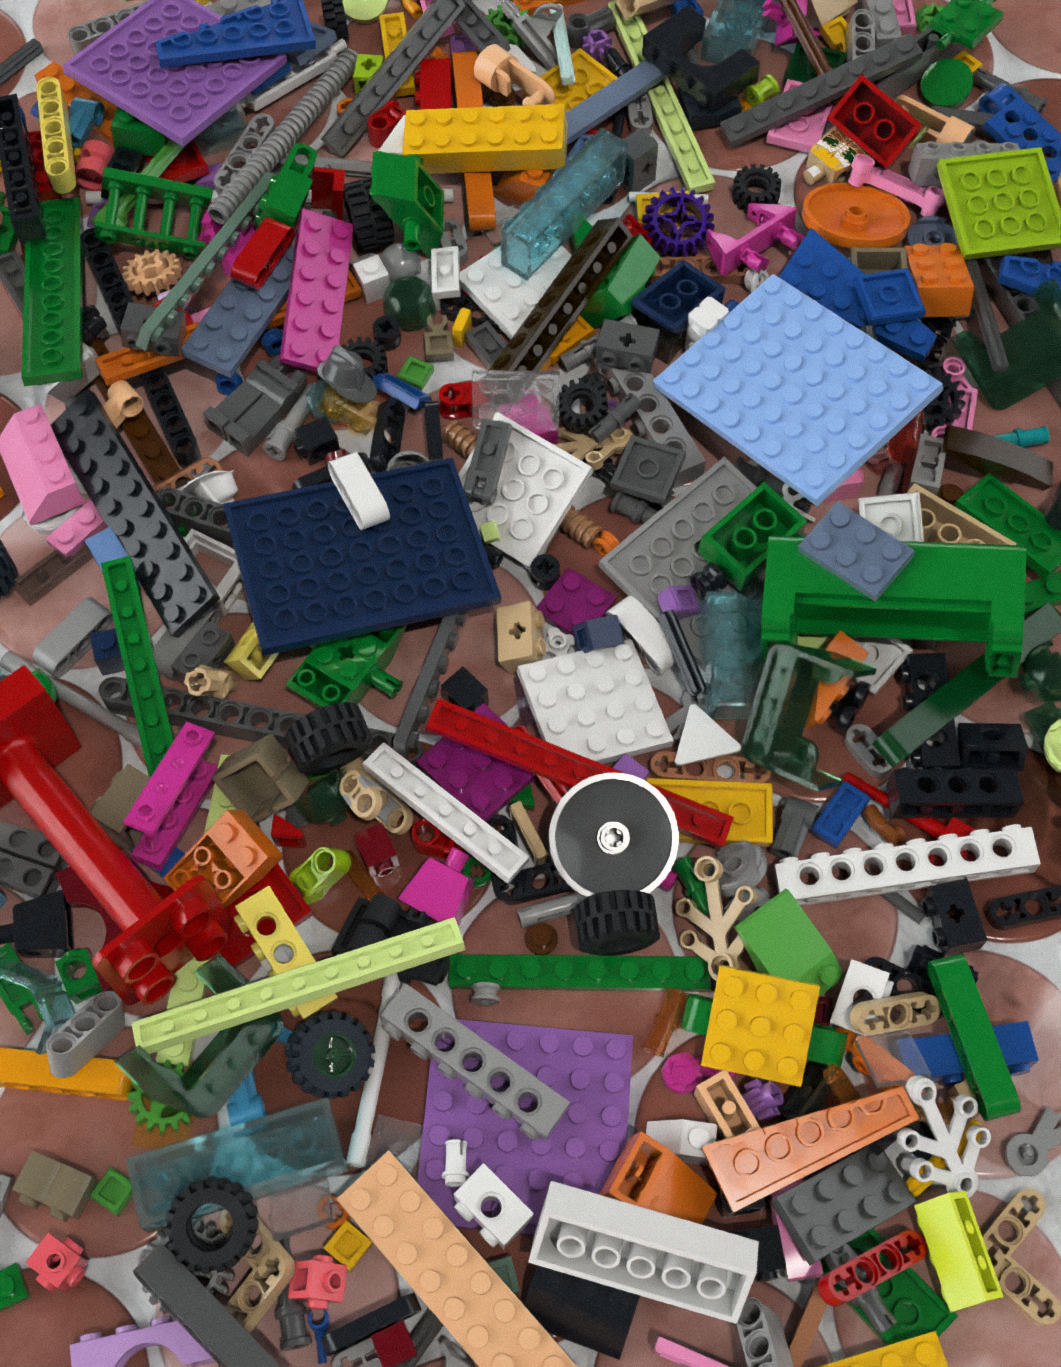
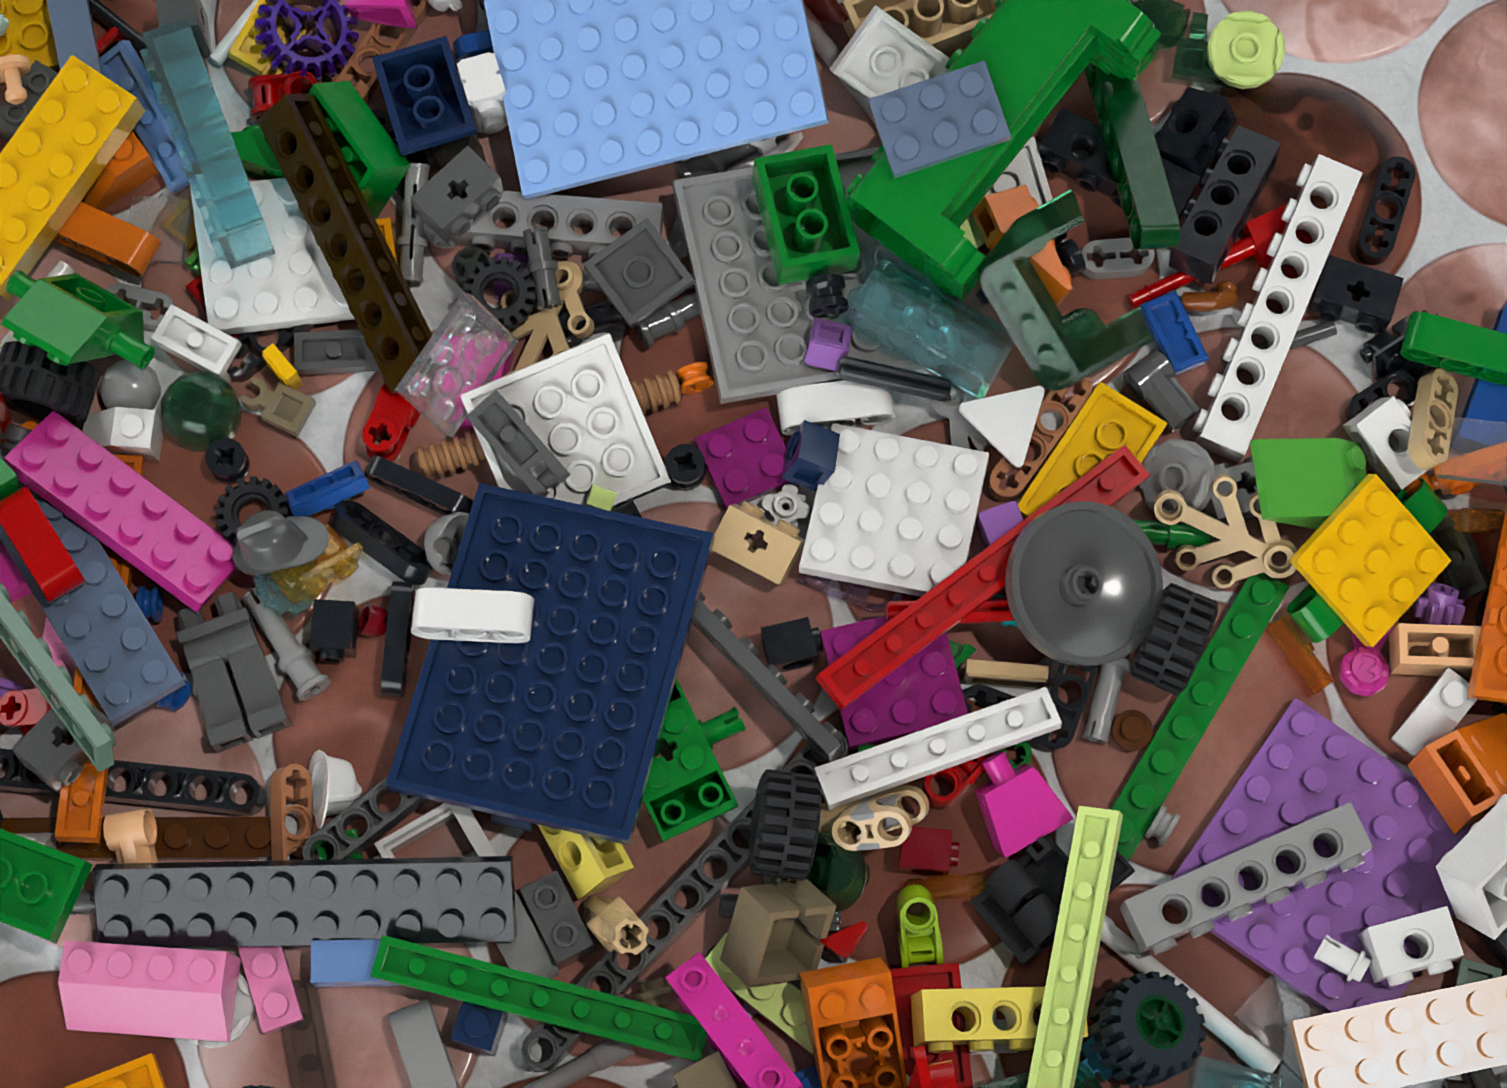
camera: 60 degrees left, 10 degrees up
(416, 372) = (306, 459): bright green tile -> none

